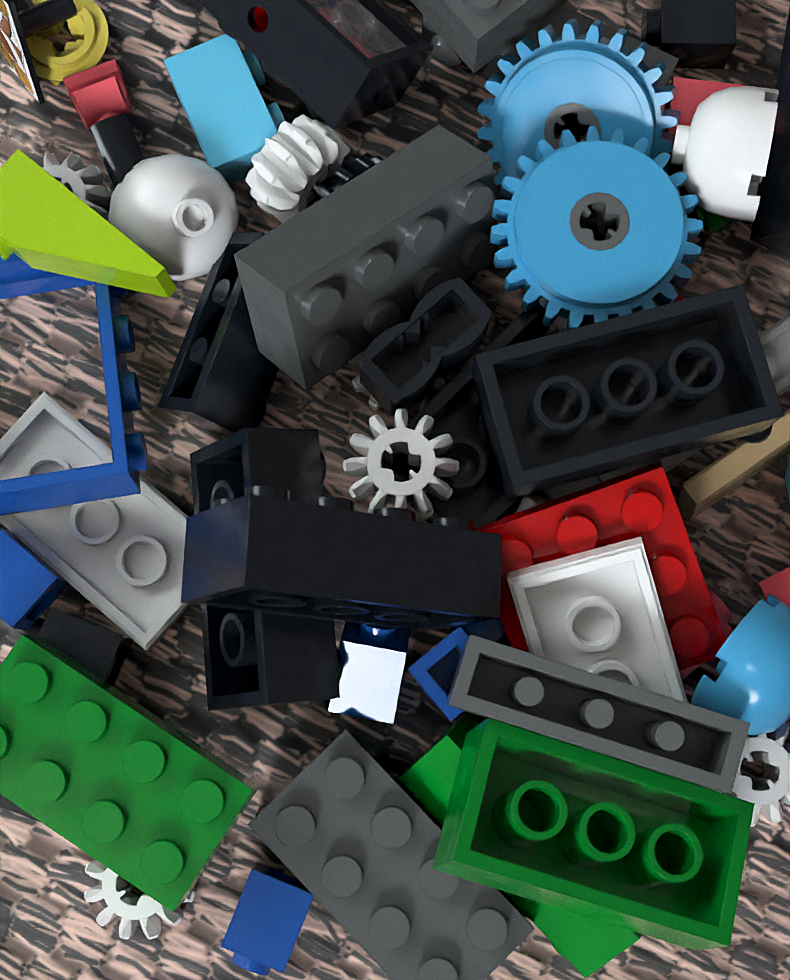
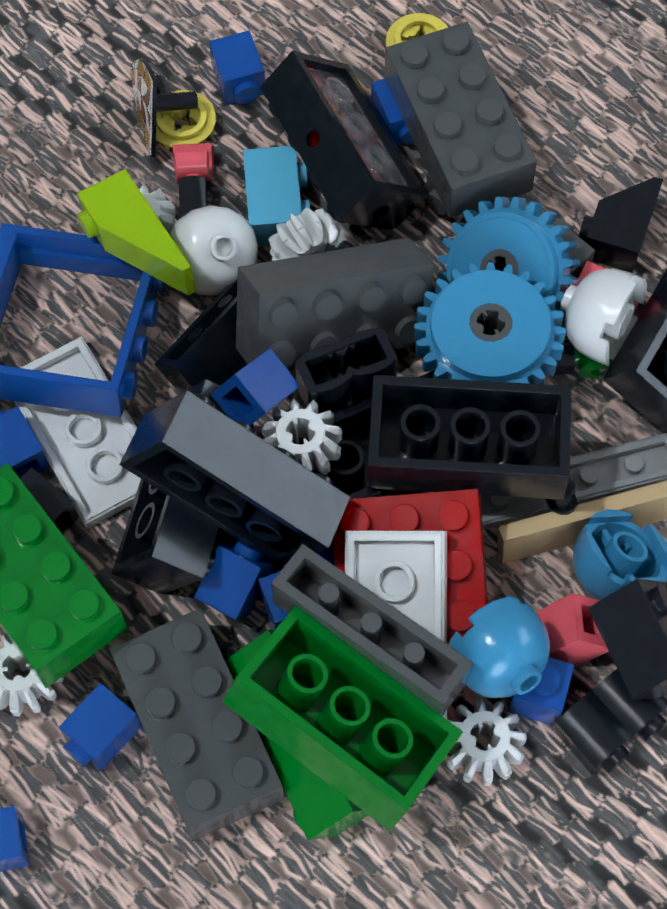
camera: 20 degrees right, 15 degrees down
(319, 420) = (255, 389): none -> blue brick

